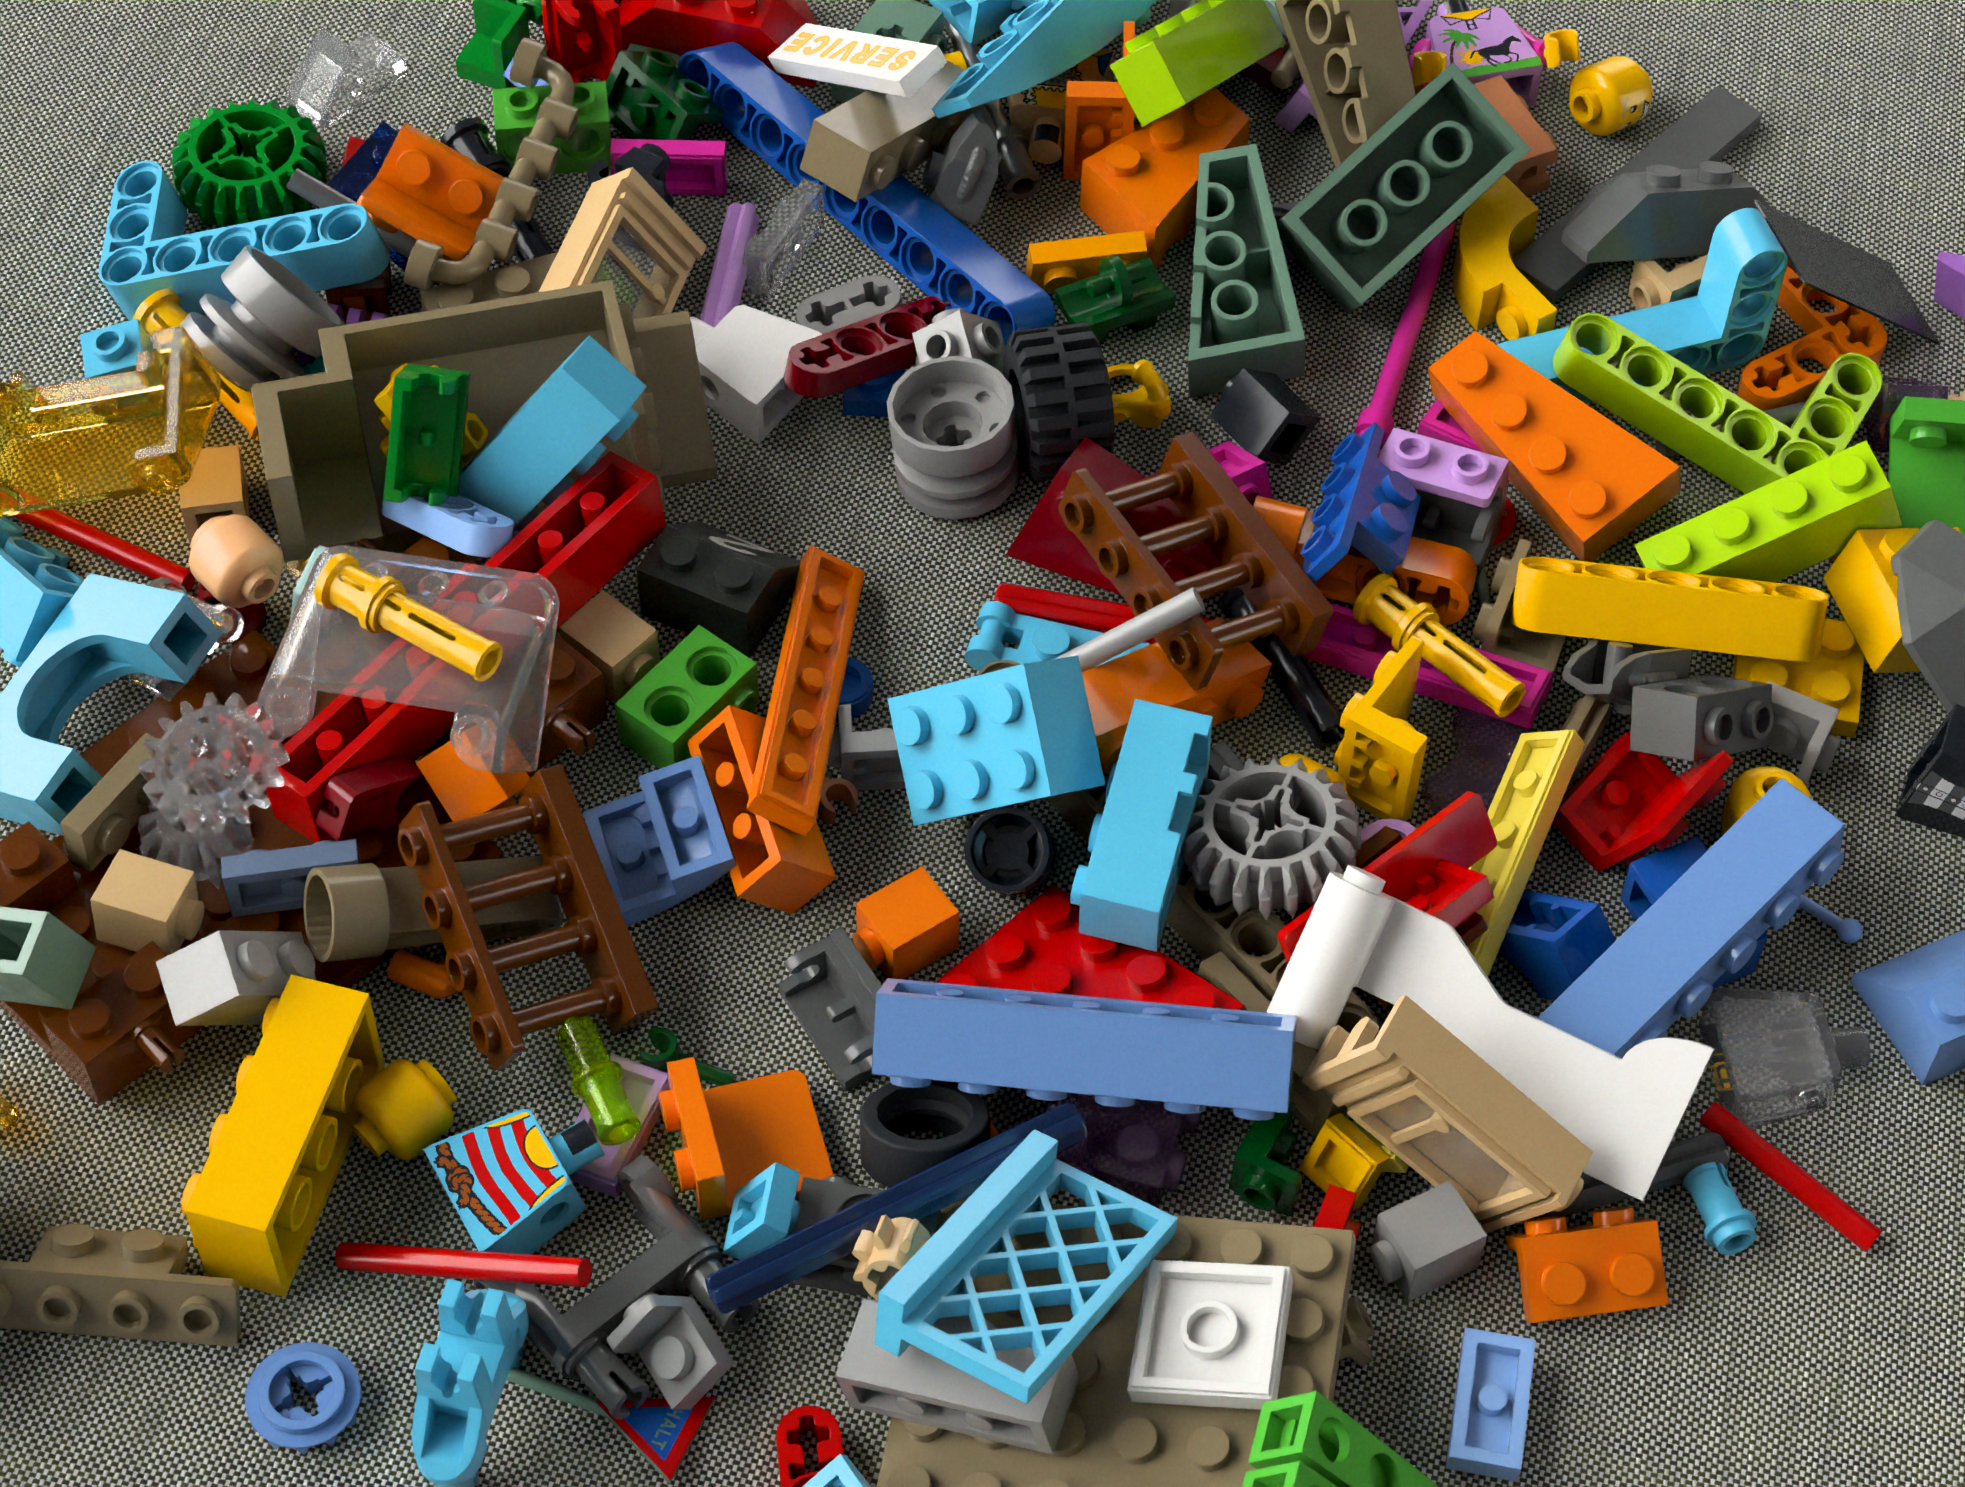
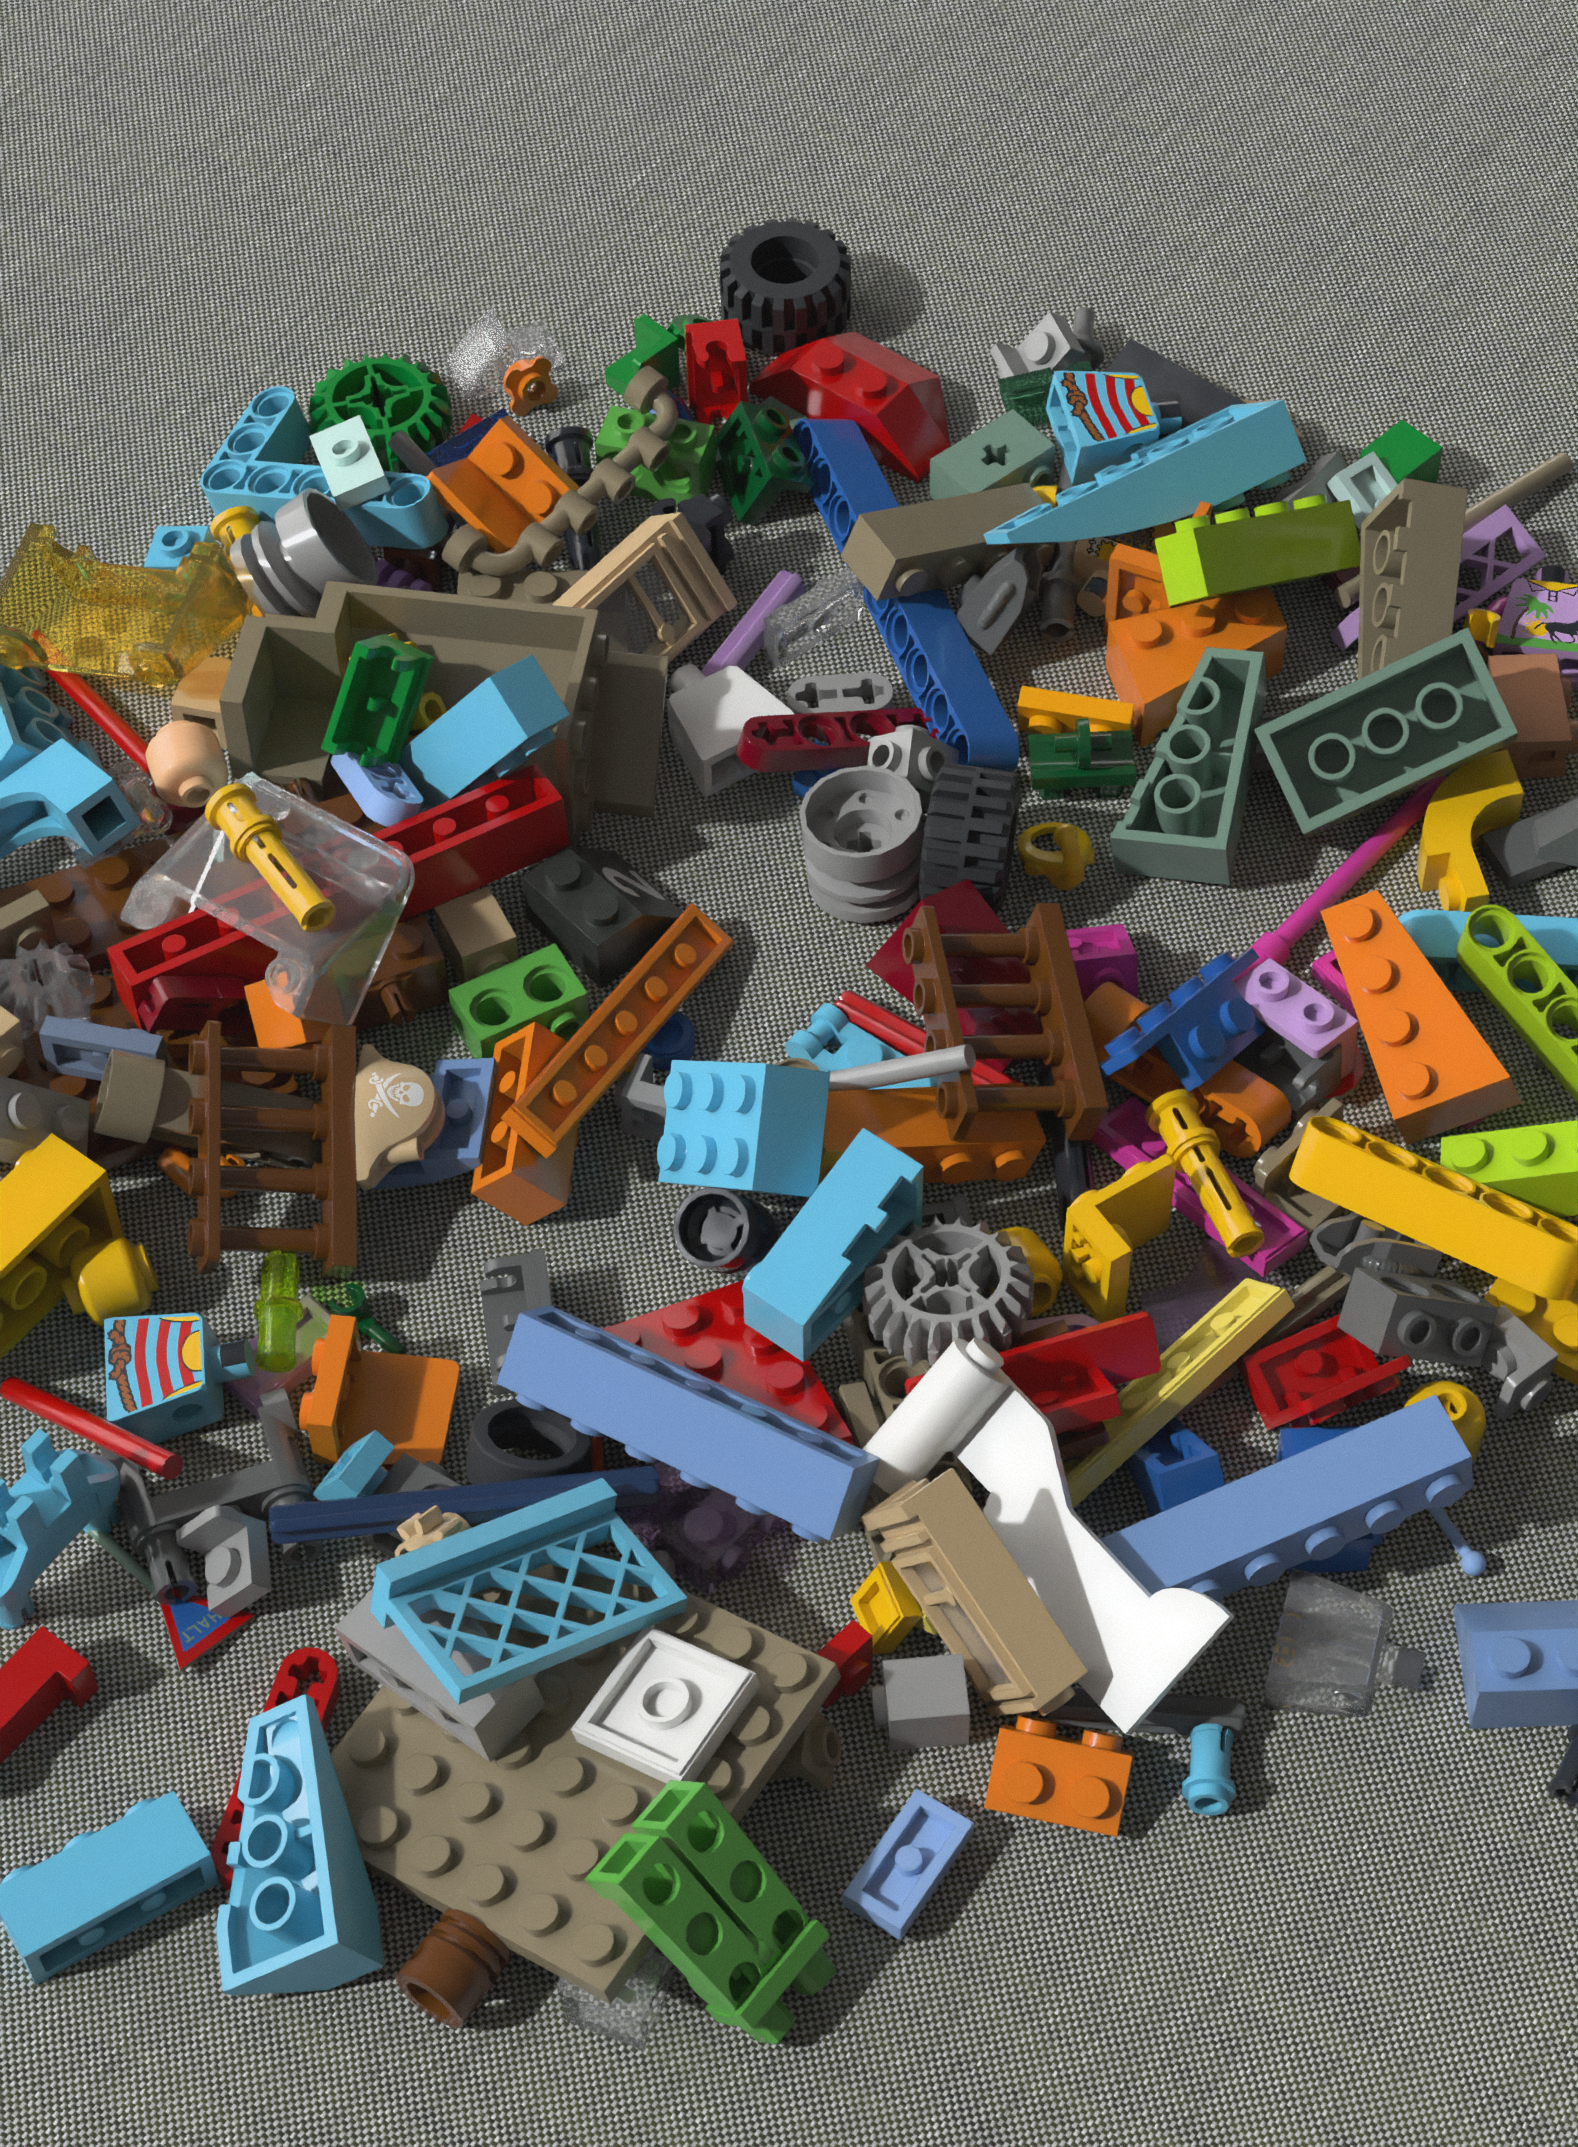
camera: 25 degrees right, 0 degrees up
(214, 762) = (69, 932): clear gear -> none
(266, 212) = (350, 463): none -> light aqua plate
(387, 94) = (521, 376): none -> orange plate
(635, 840) = (394, 1115): none -> tan hat
(694, 167) = (756, 523): dark pink tile -> none
(836, 790) = (607, 1126): nougat hand -> none
(858, 59) = (940, 469): white tile -> none
(906, 925) = (608, 1268): orange brick -> none
(1260, 1165) = (812, 1574): dark green bracket -> none
(1264, 416) = (1163, 911): black brick -> none
(1791, 1176) = (1291, 1765): red bar -> none

